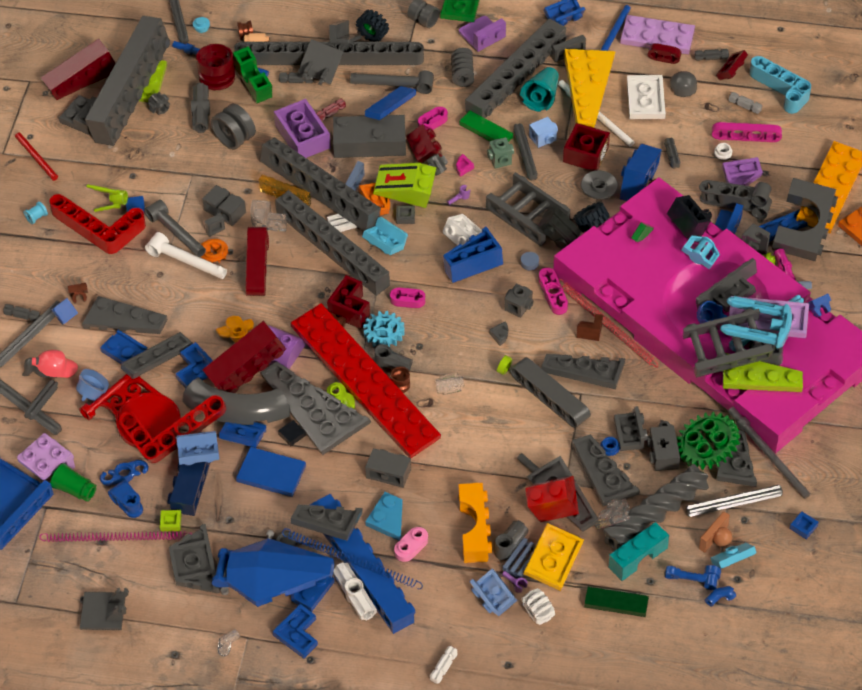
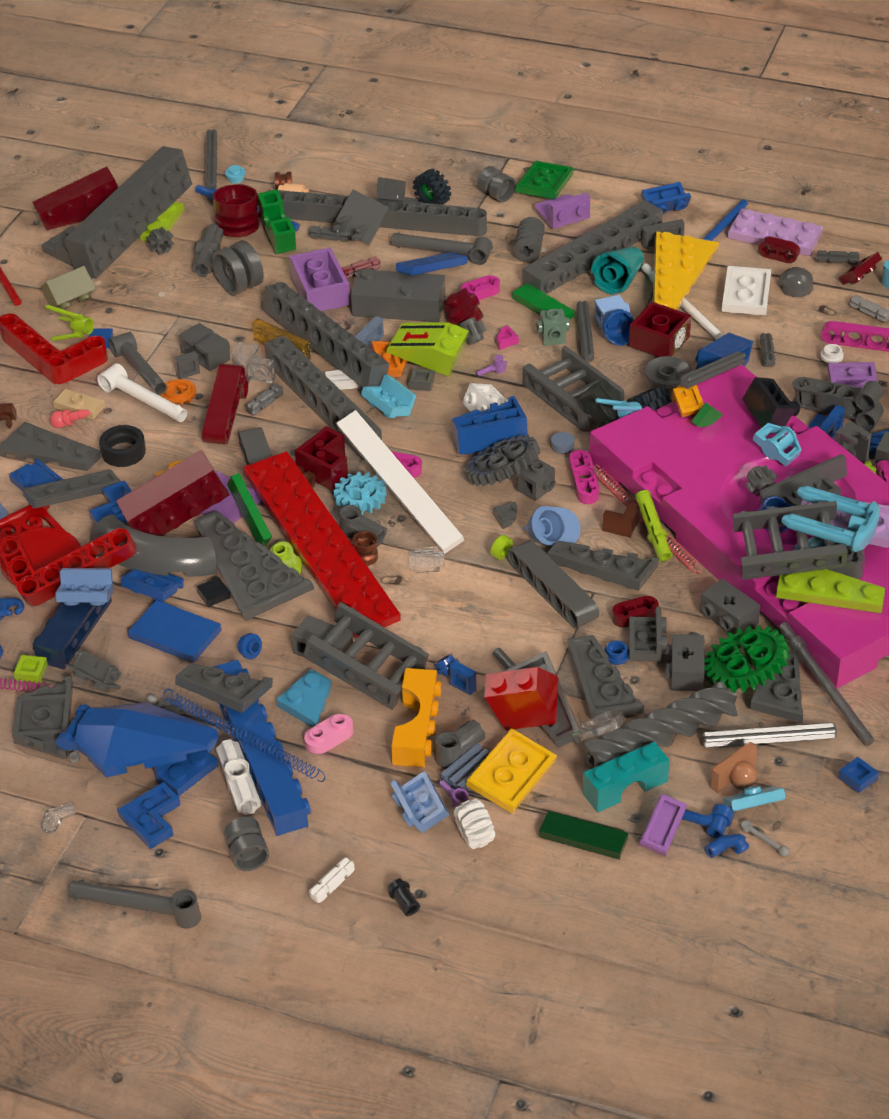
camera: 10 degrees right, 10 degrees down
(96, 162) = (68, 288): none -> brick
(126, 288) = (62, 418): none -> coral bar
(136, 272) = (76, 401): none -> tan plate
(180, 298) = (126, 456): none -> black tyre
(213, 514) = (103, 675): none -> dark grey hinge
(285, 249) = (264, 399): none -> dark grey axle
(291, 299) = (254, 445): none -> dark grey beam
(305, 360) = (249, 509): none -> green tile
(333, 478) = (249, 645): none -> blue plate
(375, 646) = (246, 843): none -> dark grey wheel
(414, 317) = (400, 482): none -> white tile
(419, 492) = (355, 673): none -> dark grey fence
(486, 474) = (443, 664): none -> blue plate
(489, 287) = (502, 460): none -> dark grey gear
(499, 670) = (400, 892): none -> black pin
(501, 484) = (462, 677): none -> blue tile
(540, 341) = (553, 525): none -> medium blue piece
(552, 147) = (617, 327): none -> blue hair
(576, 229) = (624, 408): none -> medium azure plant
(615, 406) = (637, 607): none -> dark red beam
(621, 339) = (657, 534): none -> lime pin
(625, 218) = (687, 400): none -> light orange bracket
(639, 189) = (712, 369): none -> dark grey axle
(673, 586) = (663, 825): none -> medium lavender tile
(686, 396) = (729, 607): none -> dark grey brick
(694, 287) = (760, 479): none -> dark grey gear
(731, 577) = (746, 826): none -> light grey hinge

